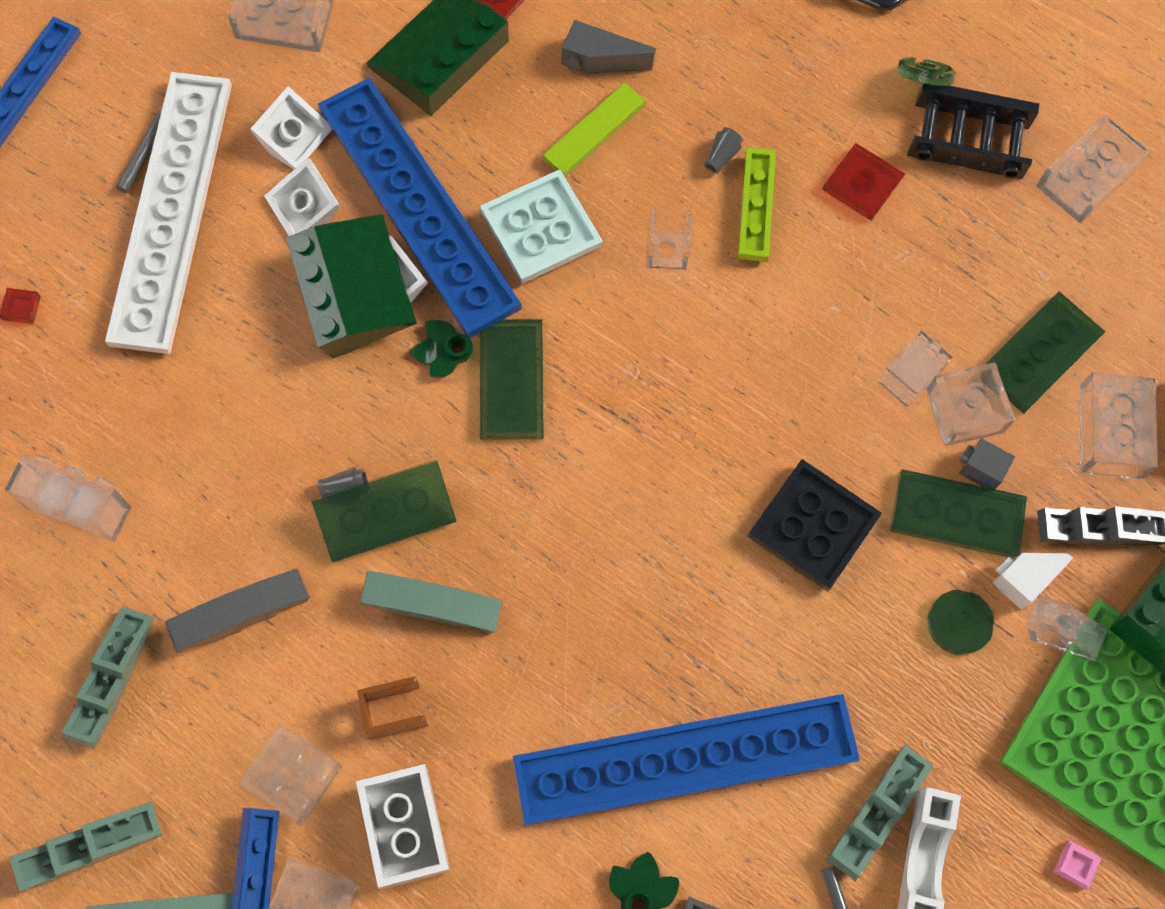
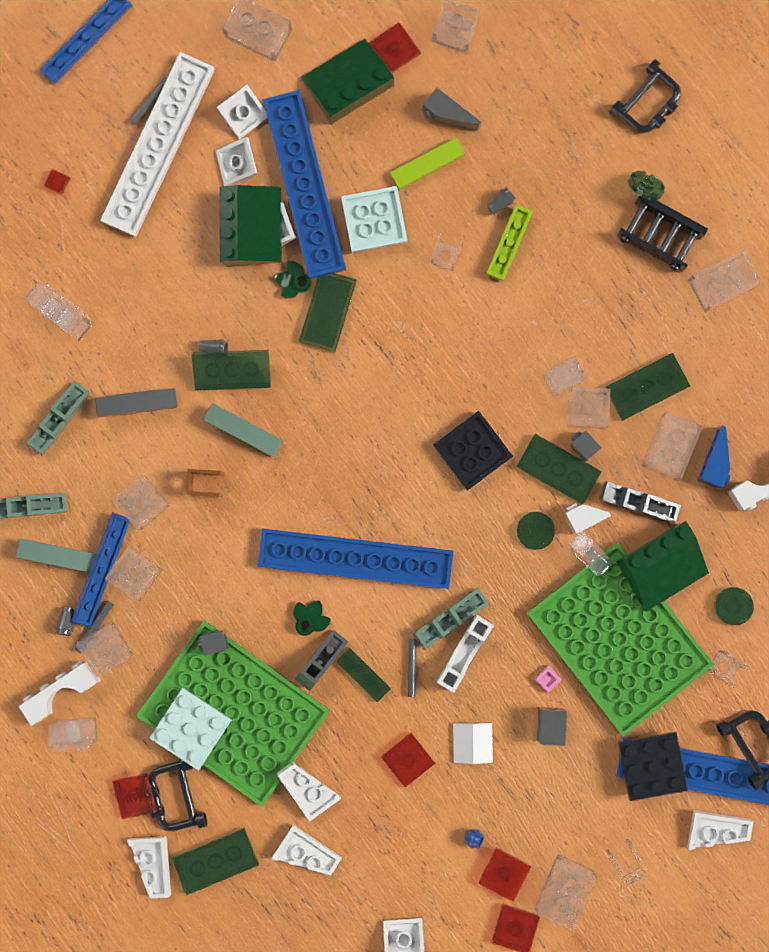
camera: 25 degrees right, 15 degrees up
(402, 827) = (192, 548): white brick -> none
(863, 181) = (581, 246): clear red plate -> none

